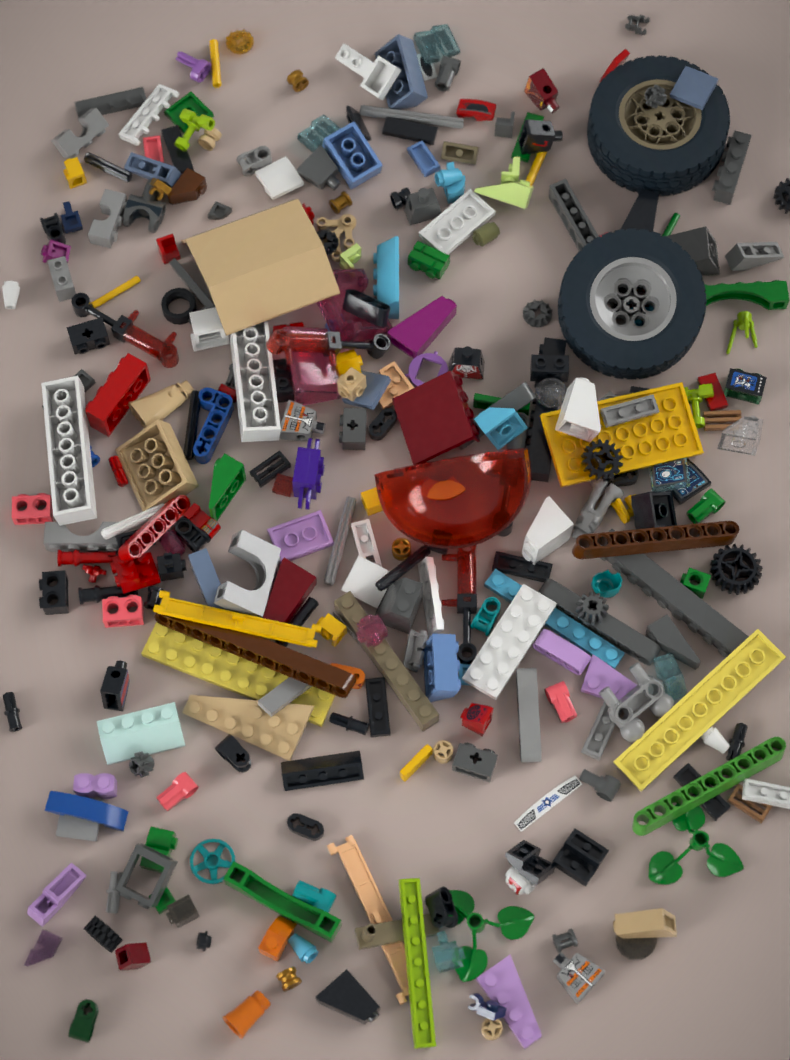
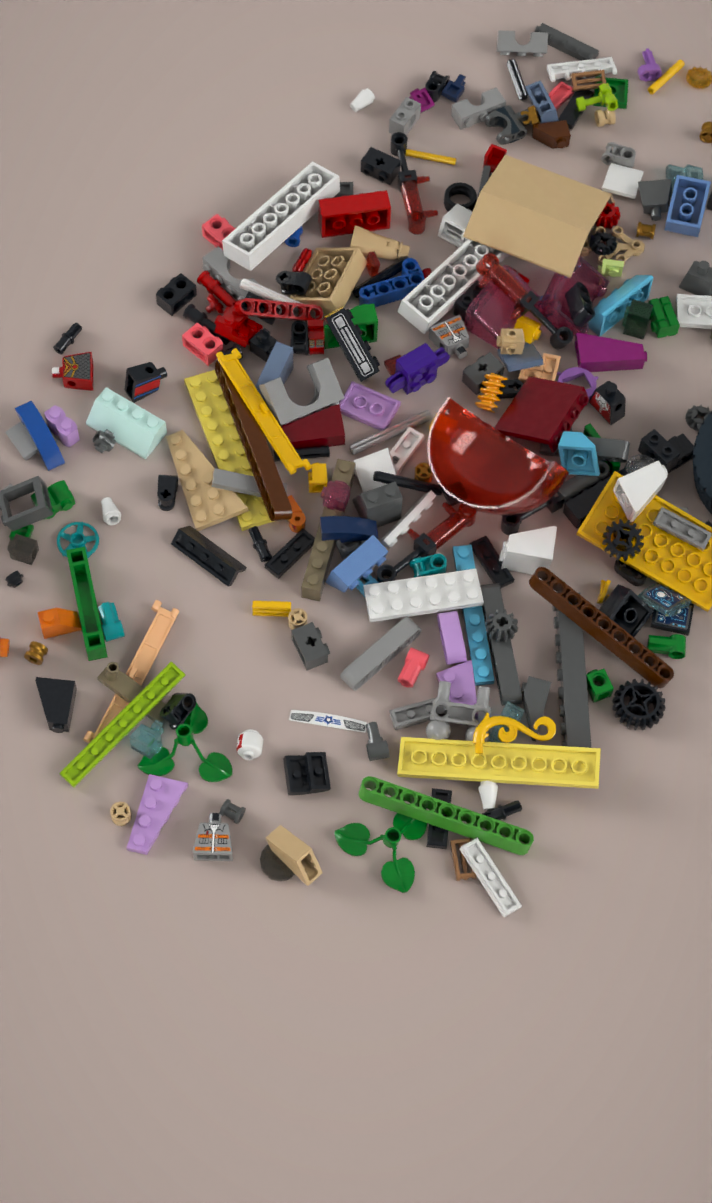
camera: 45 degrees right, 5 degrees down
(53, 731) = (76, 371): none -> torso
(74, 173) = (490, 63): yellow brick -> none
(137, 494) = (294, 282): none -> black piece
(157, 129) = (584, 81): none -> medium nougat tile
(172, 543) = (282, 331): clear pink brick -> none
(176, 421) = (372, 264): none -> clear red tile
(181, 788) = (111, 478): coral piece -> none
(212, 814) = (111, 514): none -> white cone
(219, 211) = (557, 167): dark grey tile -> none
(243, 501) = (352, 344): none -> black brick
(271, 476) = (392, 351): black tile -> none
(304, 949) = (66, 645): medium azure cone -> none
(307, 822) = (154, 578): black beam -> none
(380, 437) = (490, 392): none -> light orange piece
(399, 199) = (687, 260): black wheel -> none
(406, 647) = (347, 528): none -> dark blue slope
(417, 279) = (637, 319): none -> clear green brick
(445, 490) = (498, 467): orange tile -> none
(477, 718) = (344, 621): red slope -> none
(488, 1009) = (131, 798): dark blue plate -> none
(528, 863) = (267, 739): black slope -> none
(588, 517) = (575, 574): light grey piece -> none
(606, 584) = (534, 625): teal hair -> none
(683, 673) = (513, 725): none -> yellow plant

